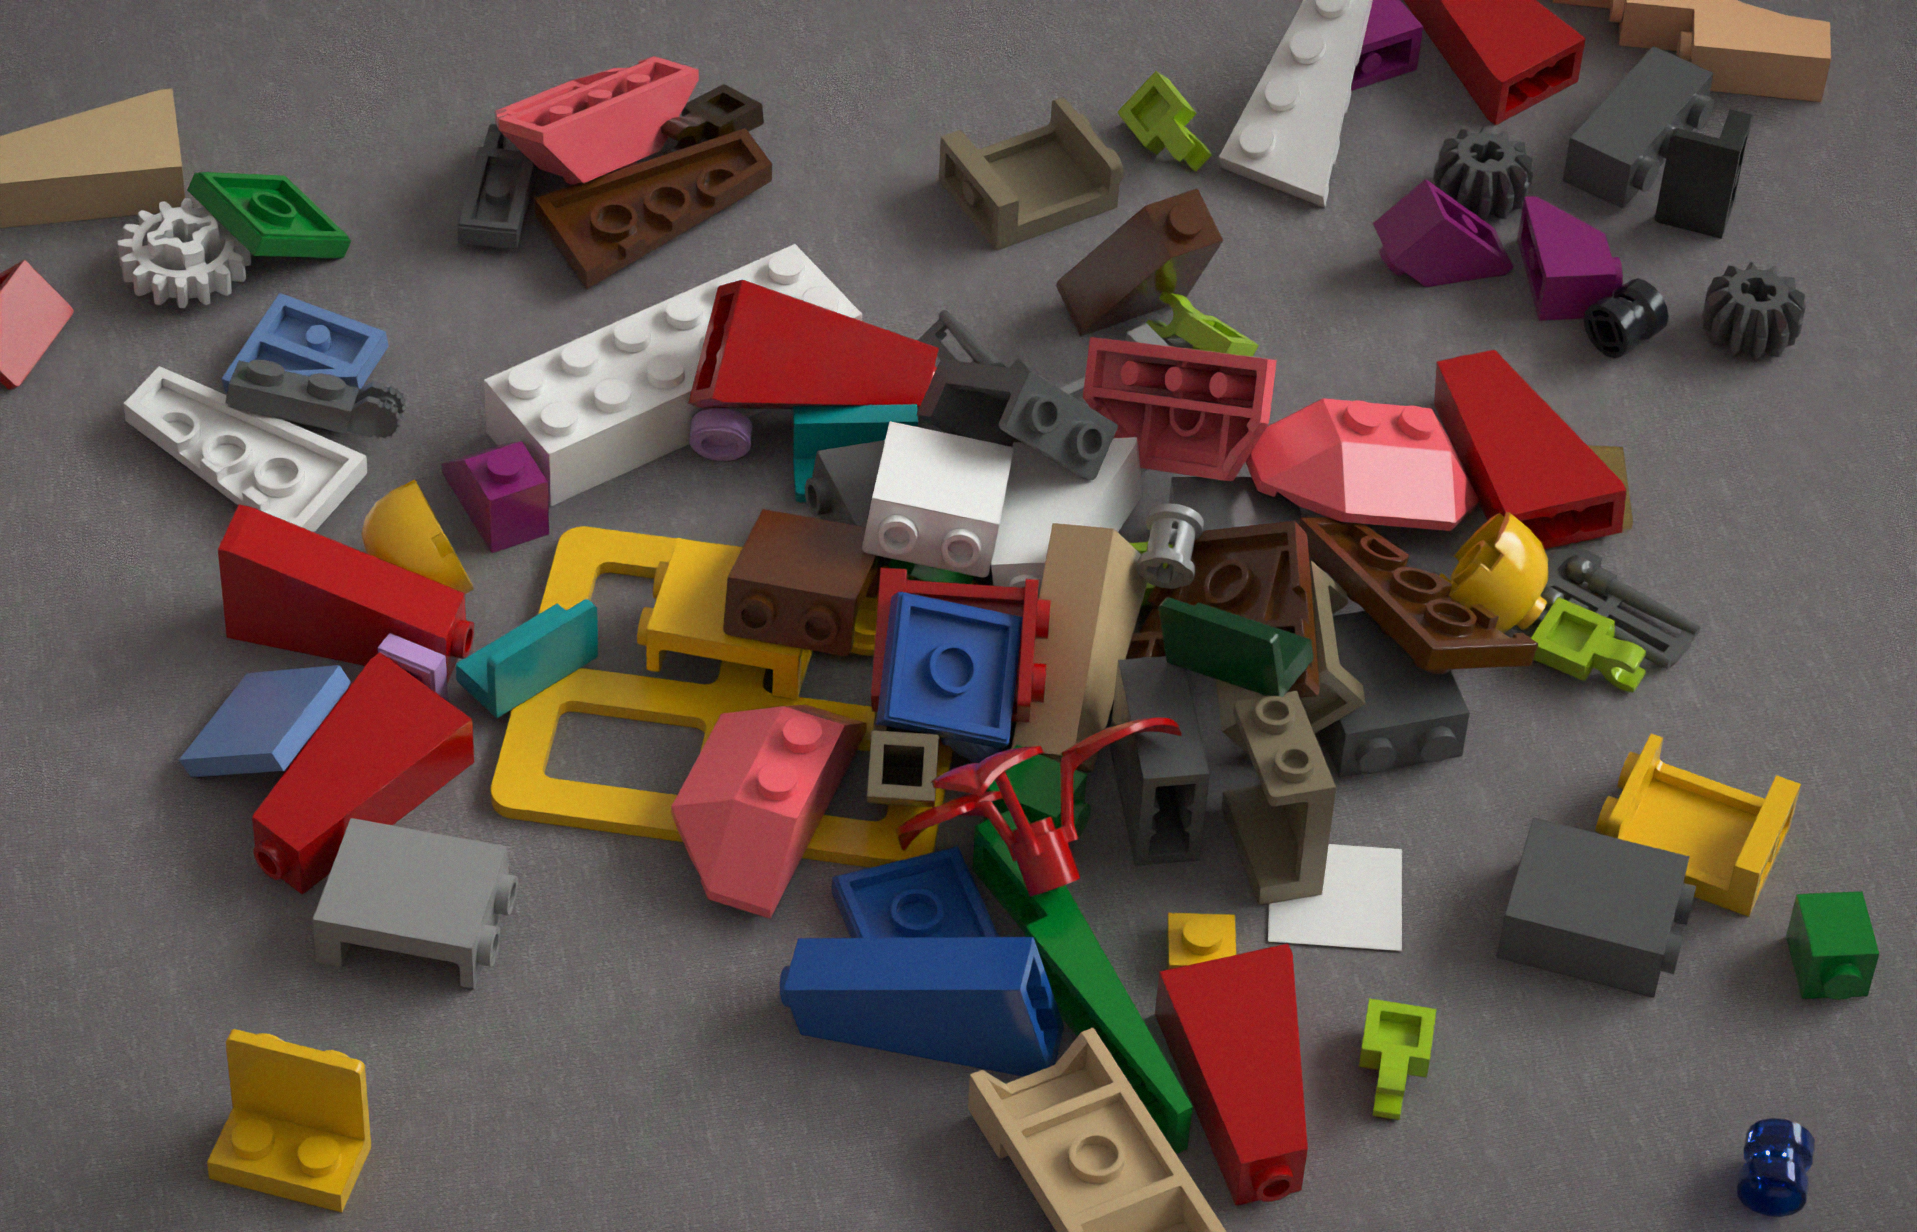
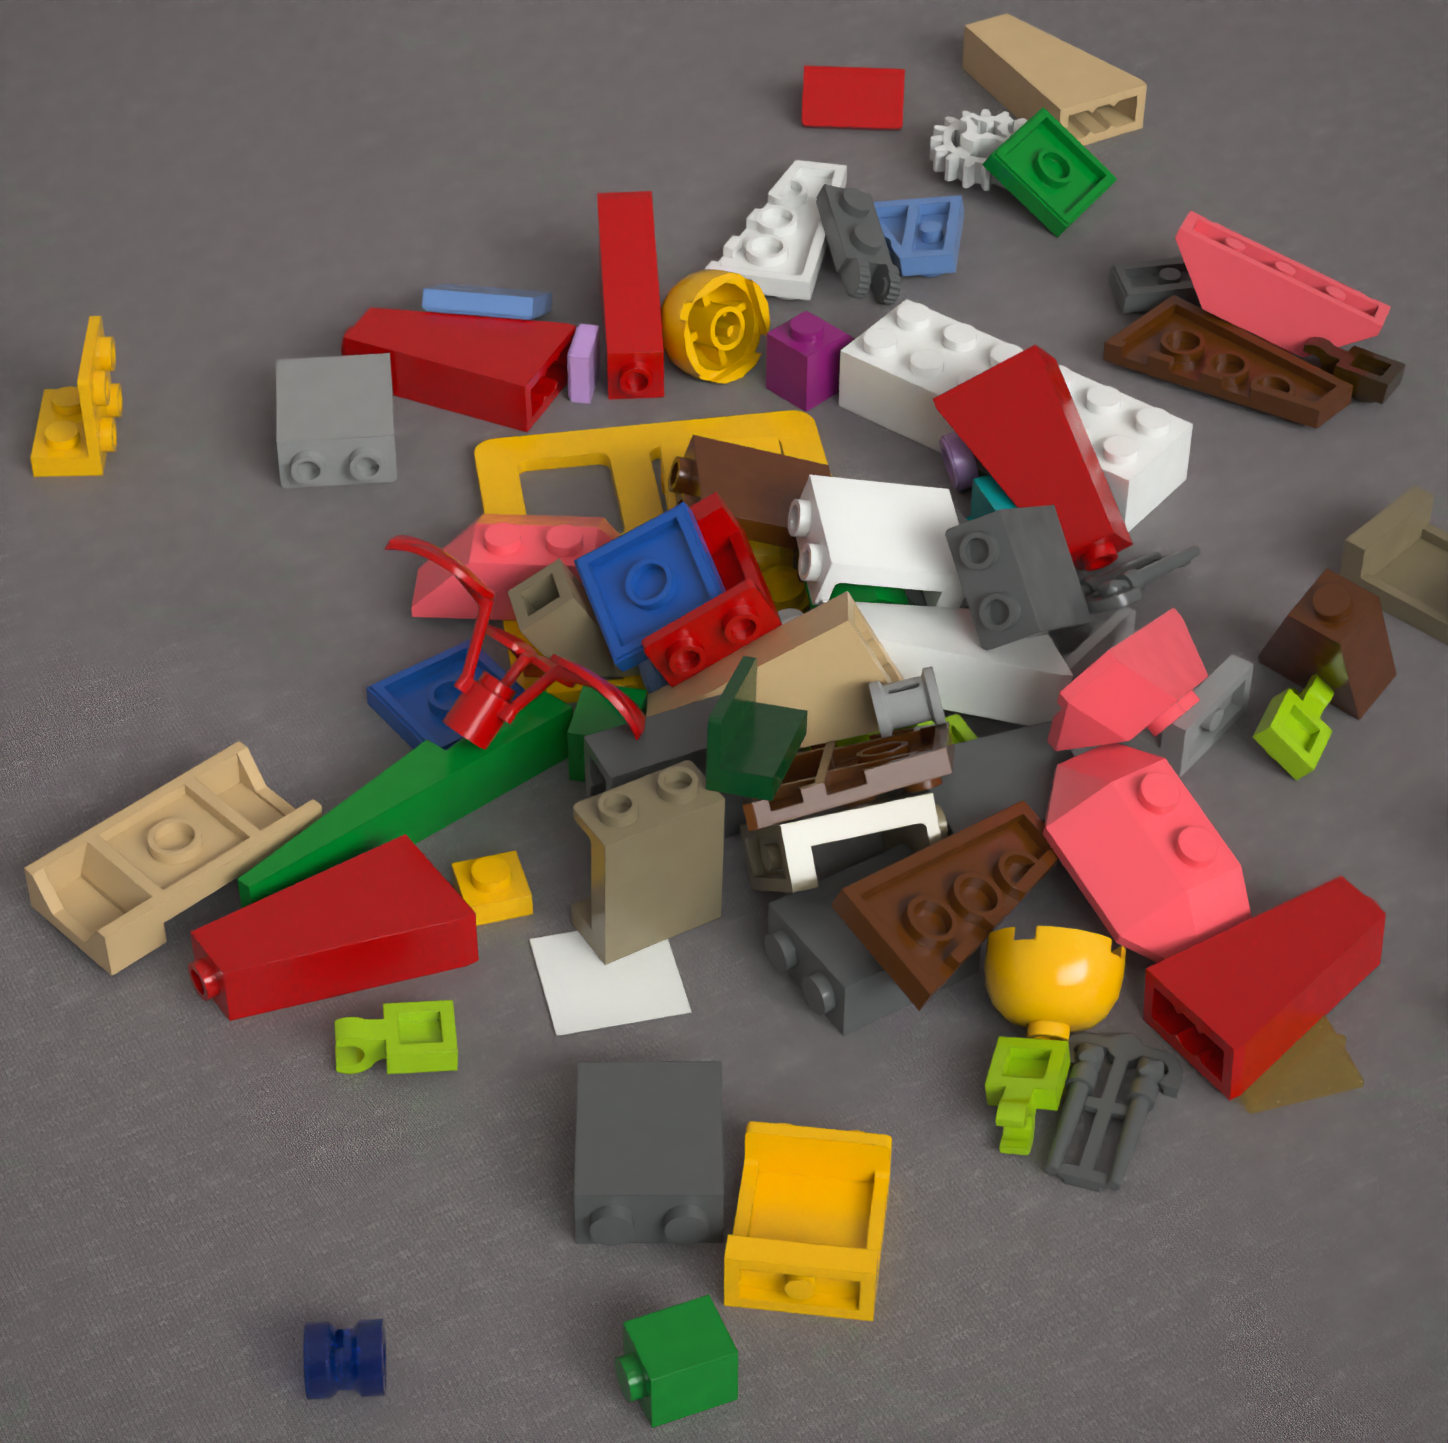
camera: 75 degrees right, 5 degrees down
(531, 657) = (624, 410): teal panel -> none
(929, 998) = (330, 708): blue slope -> none

